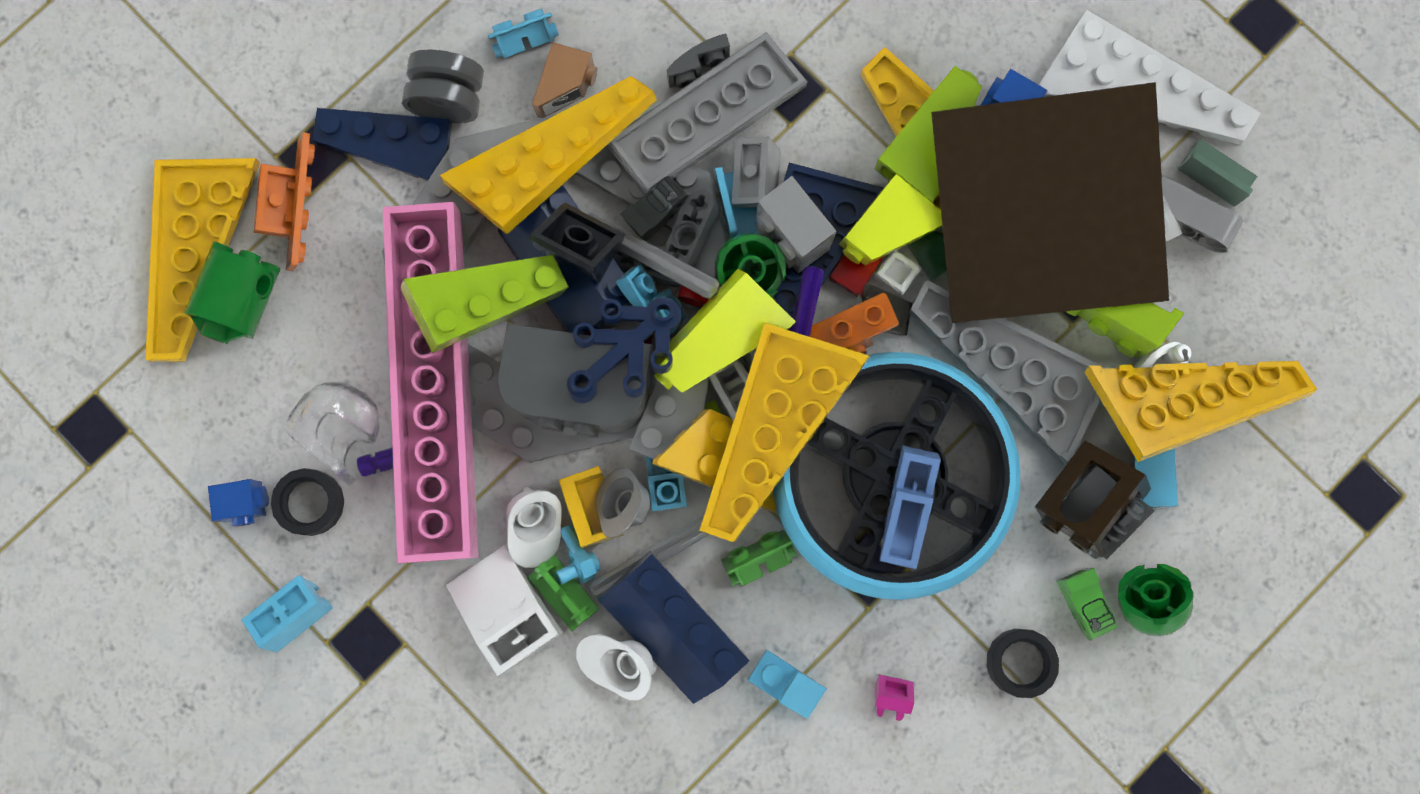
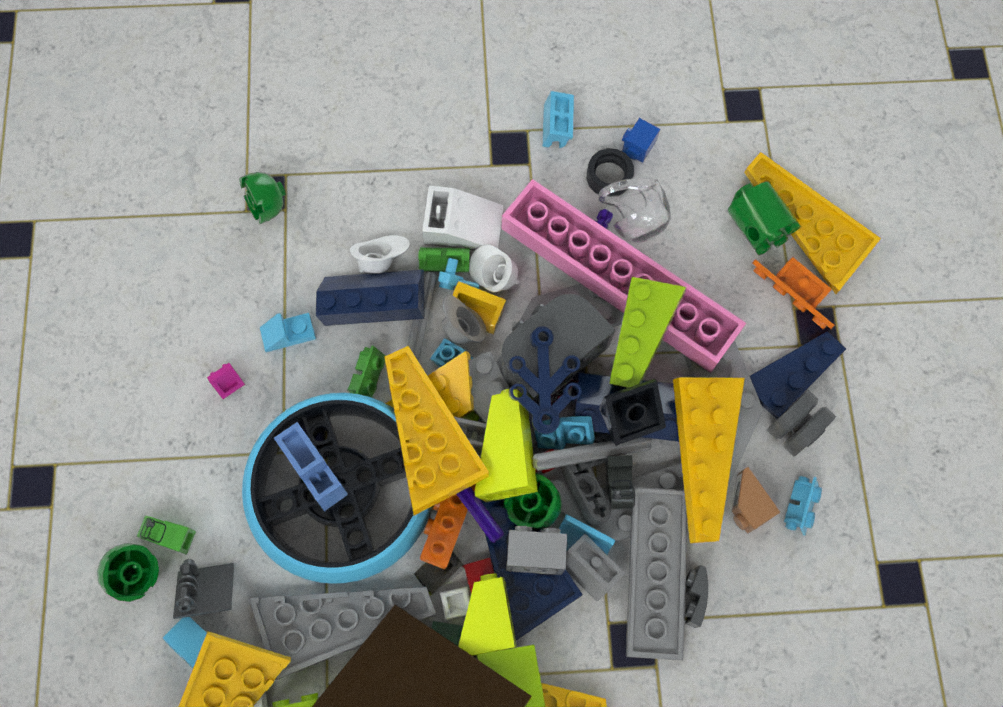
camera: 125 degrees right, 10 degrees down
(1048, 653) = (160, 450): black tyre -> none
(1092, 531) = (200, 612): dark brown panel -> none

